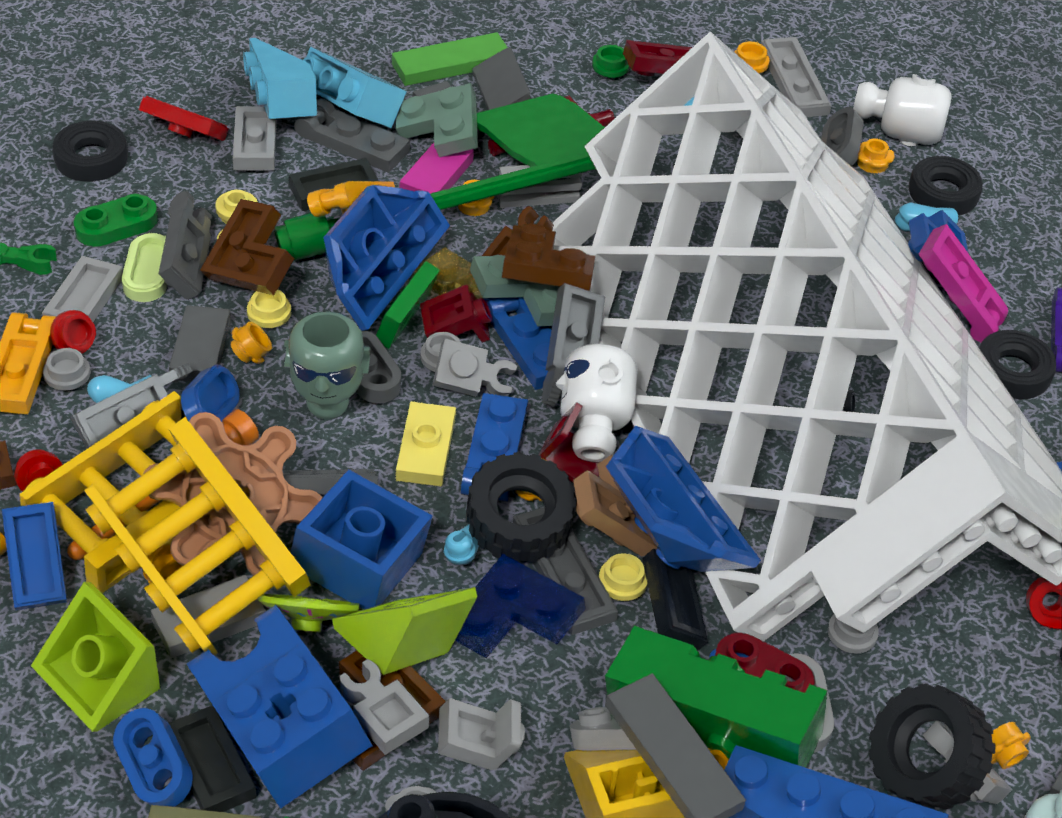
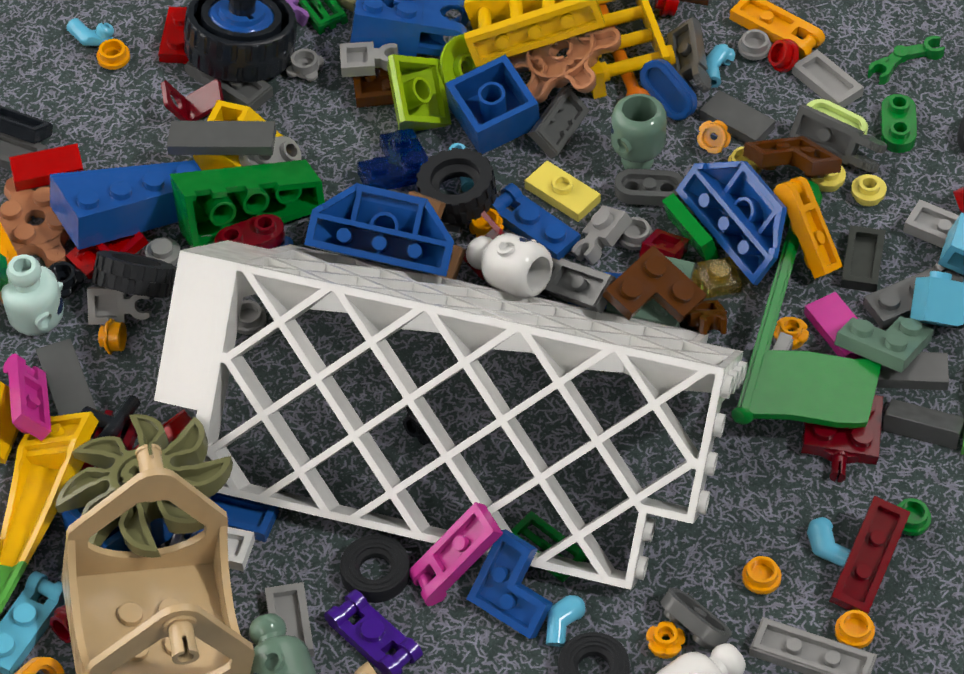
camera: 130 degrees right, 5 degrees up
(480, 734) = (327, 105): light grey bracket -> none
(850, 768) = (163, 249): none -> light grey plate

